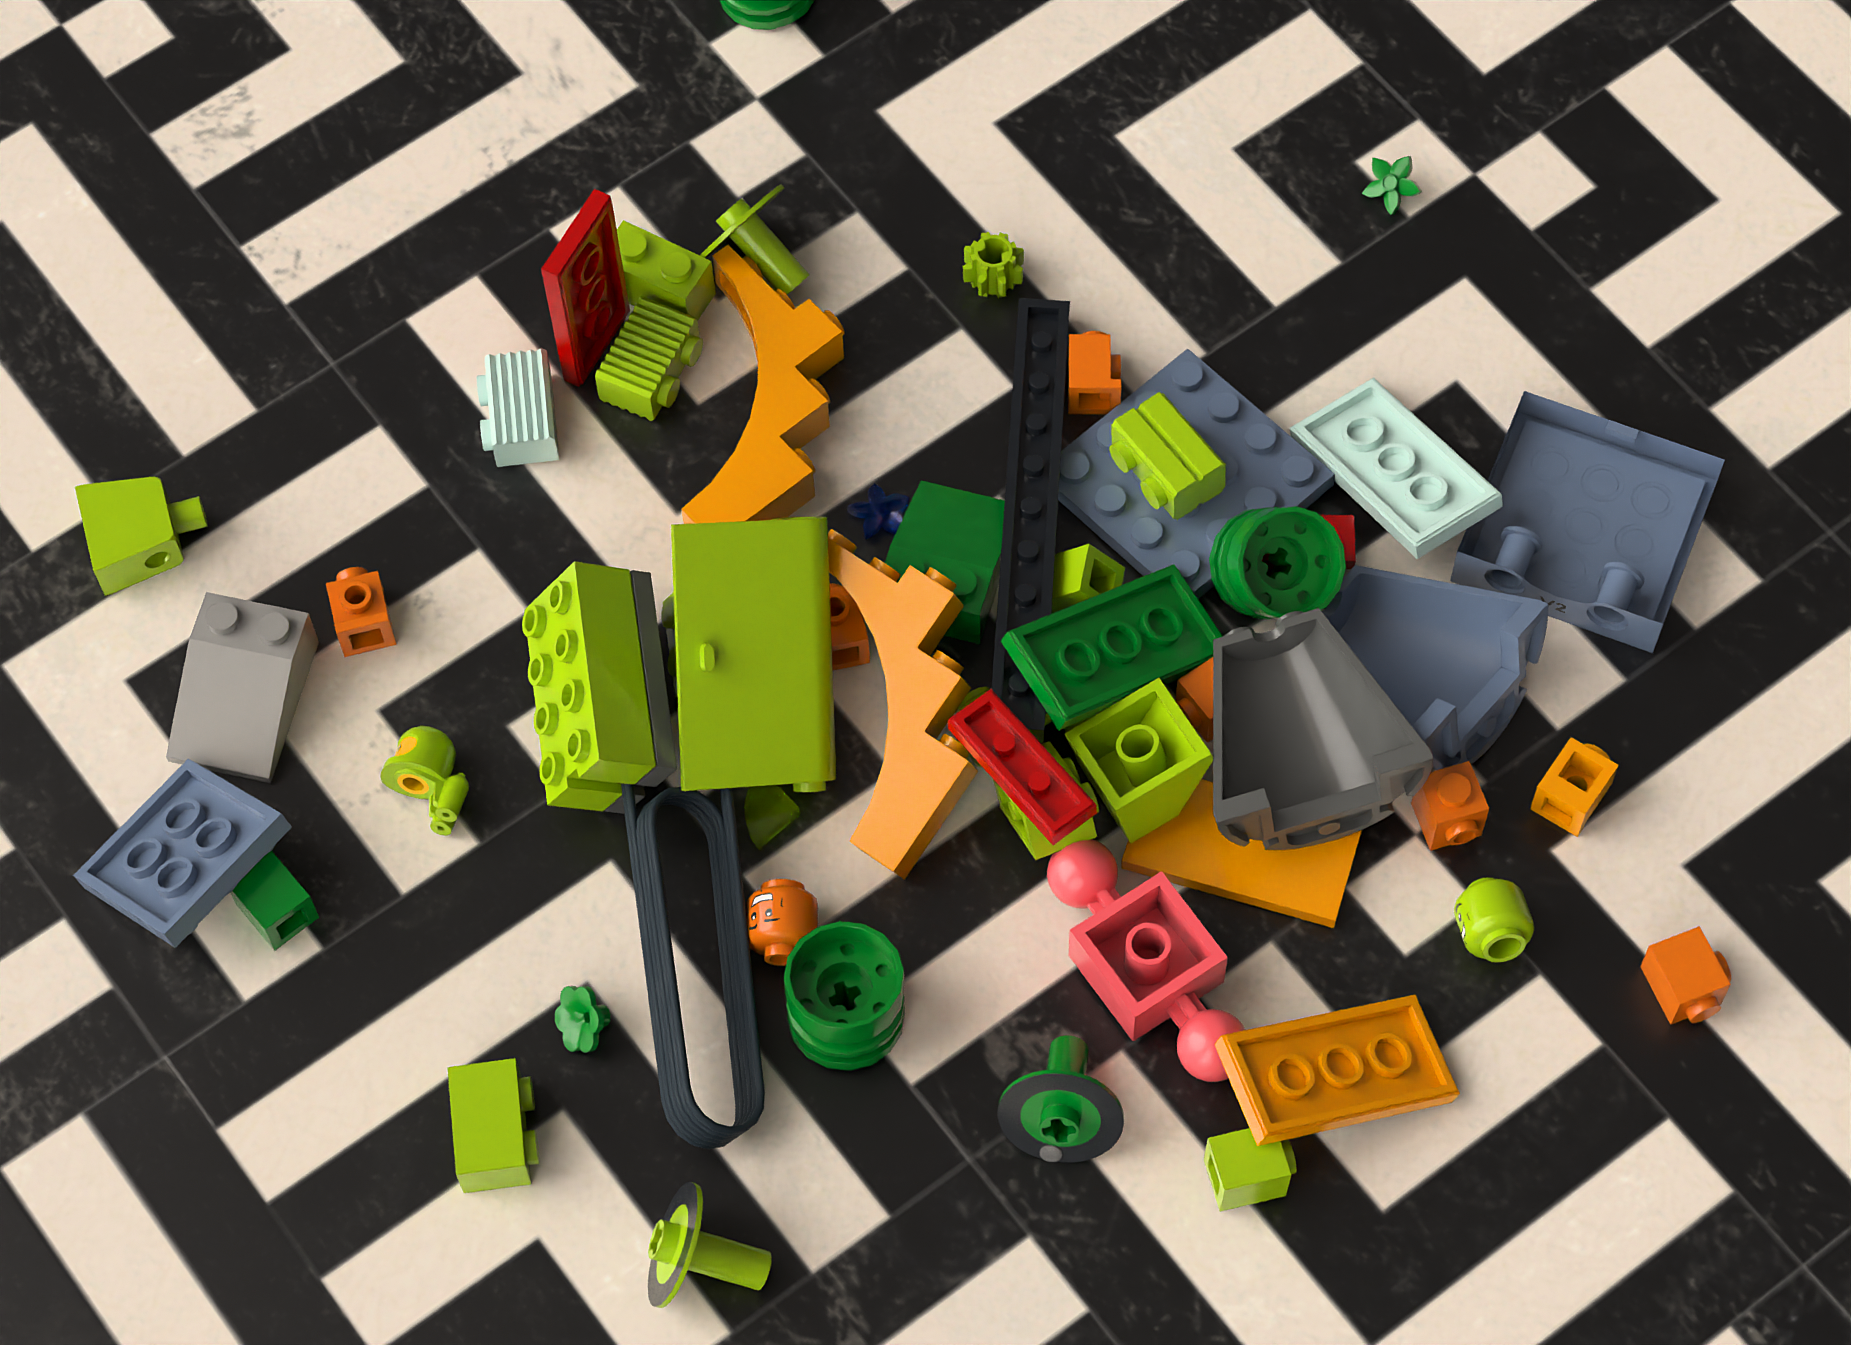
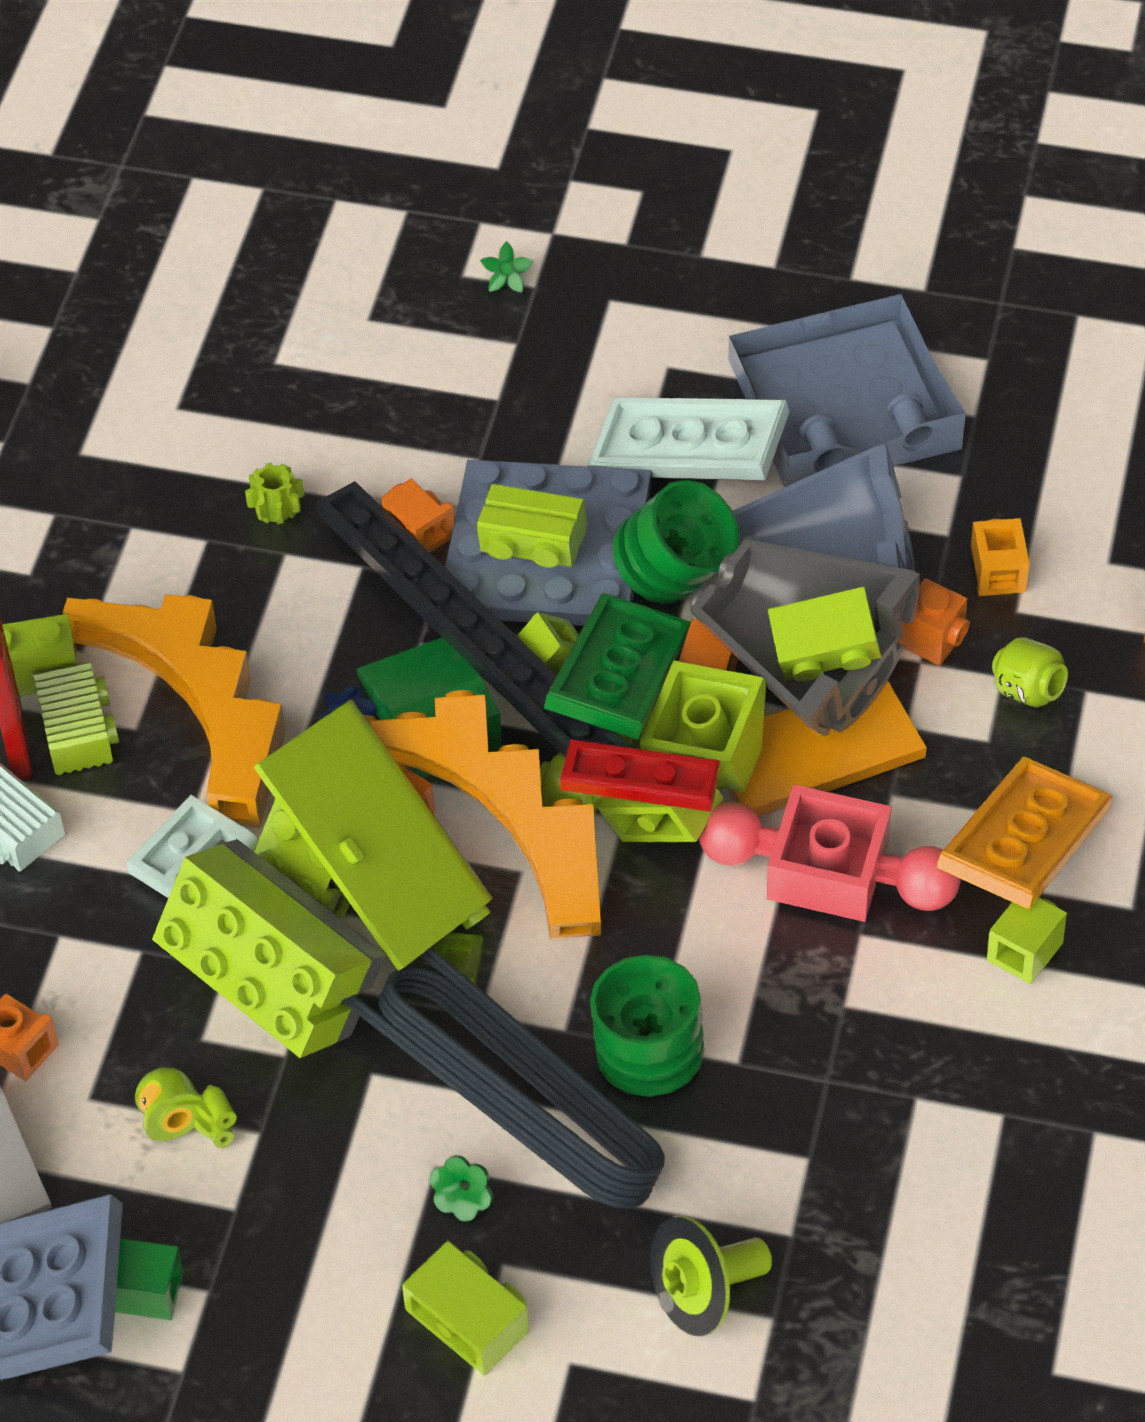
camera: 40 degrees left, 10 degrees down
(631, 540) = (184, 833): none -> light aqua plate
(760, 243) = (68, 579): lime piece -> none
(779, 918) = (550, 1012): orange head -> none
(1061, 1110) = (870, 989): piece -> none
(1310, 752) = (824, 634): none -> lime brick

